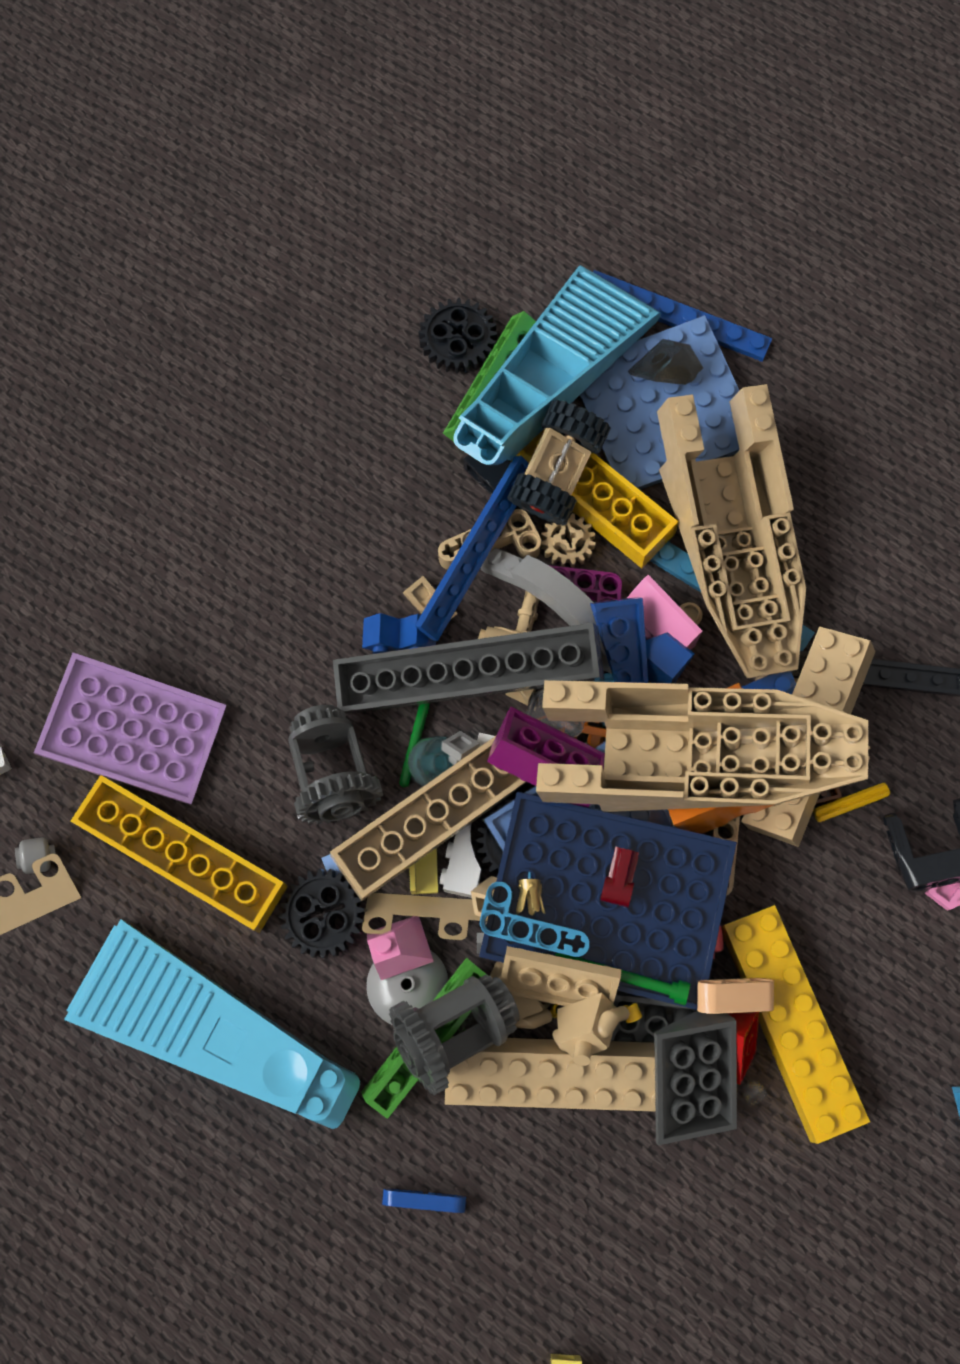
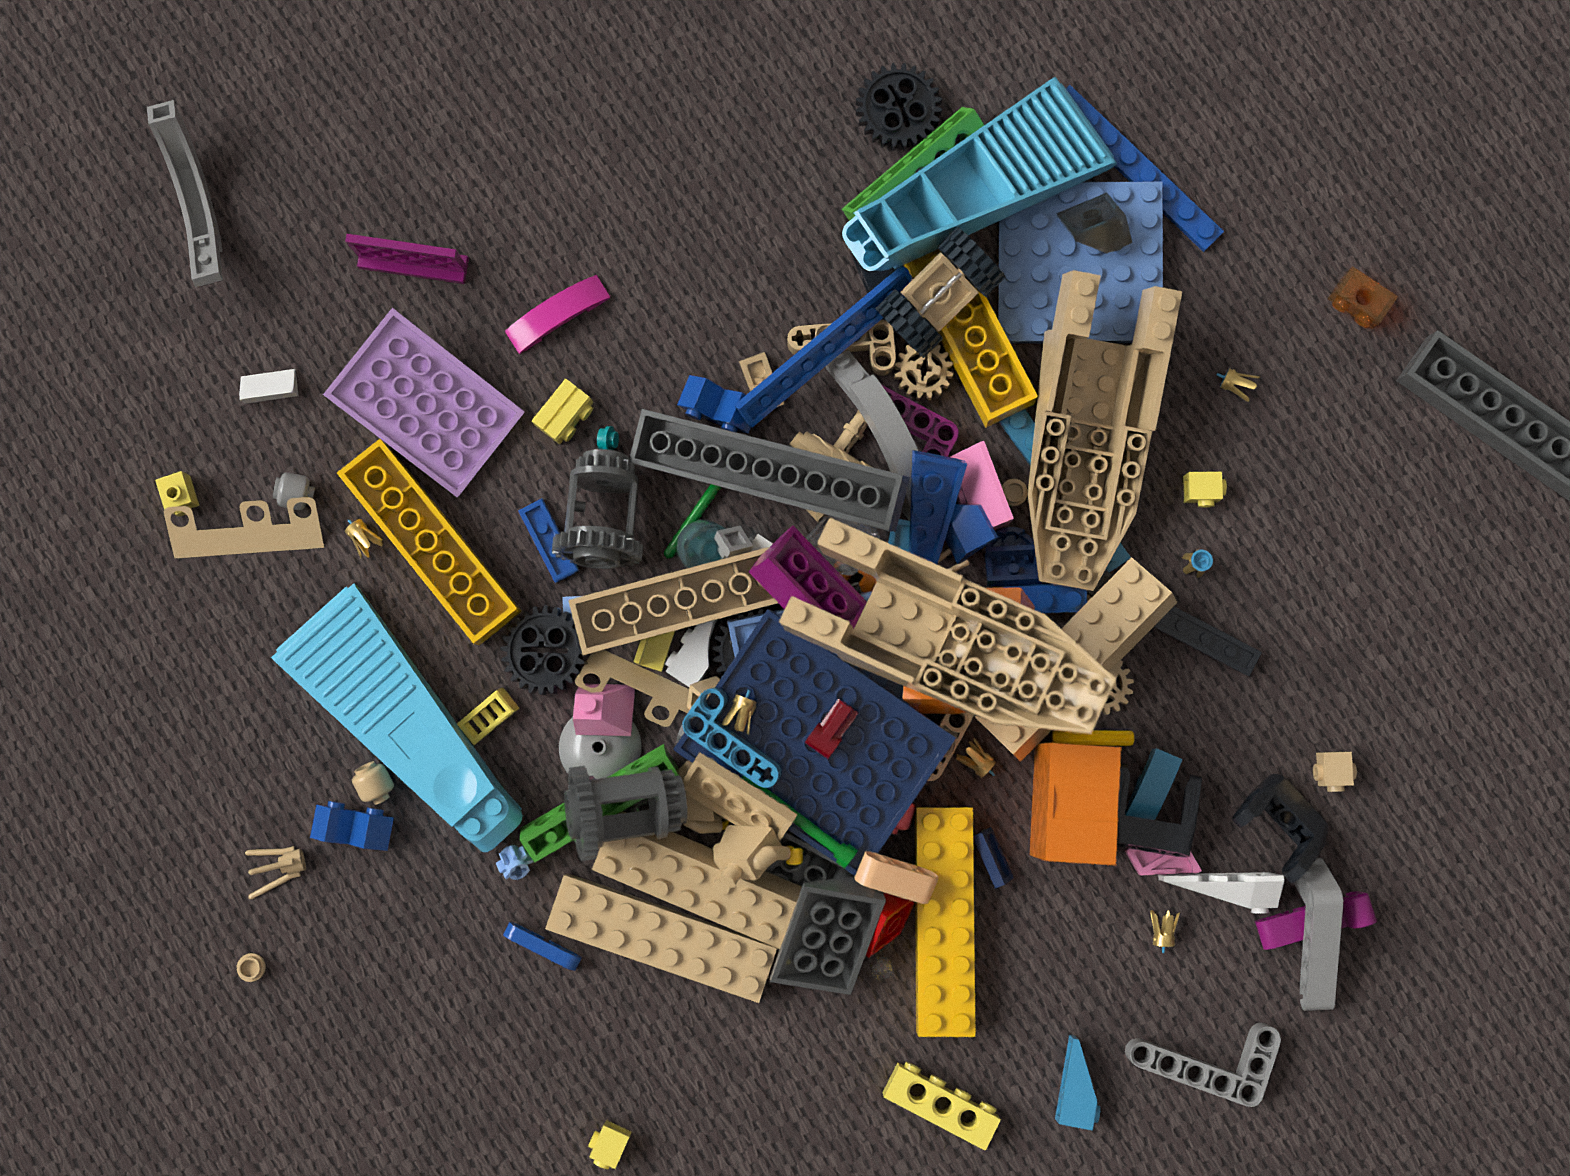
camera: 20 degrees right, 10 degrees up
(72, 608) = (409, 259): none -> magenta fence
(114, 873) = (359, 533): none -> pearl gold piece
(144, 1339) = (251, 967): none -> tan plate
(149, 1215) = (291, 862): none -> tan plant
(197, 1155) = (352, 827): none -> blue brick
(203, 1103) = (372, 782): none -> tan head
(222, 610) = (556, 312): none -> dark pink slope
(261, 692) = (563, 412): none -> light yellow brick
(282, 806) = (542, 530): none -> blue tile
(301, 974) = (506, 702): none -> light yellow slope
(310, 699) = (607, 438): none -> teal plate
(367, 1127) = (514, 862): none -> light blue gear
(536, 1145) = (661, 937): none -> tan brick
(714, 668) = (1011, 559): none -> dark blue slope
(766, 862) = (982, 761): none -> pearl gold piece
(811, 945) = (993, 857): none -> dark blue tile
(834, 451) = (1233, 377): none -> pearl gold piece
(851, 550) = (1204, 488): none -> light yellow brick
(867, 860) = (1075, 803): none -> orange tile
(876, 611) = (1199, 560): none -> dark azure piece
(910, 1216) = (977, 1131): none -> light yellow brick
(922, 344) = (1377, 298): none -> clear orange brick
(925, 821) = (1153, 785): none -> dark azure slope

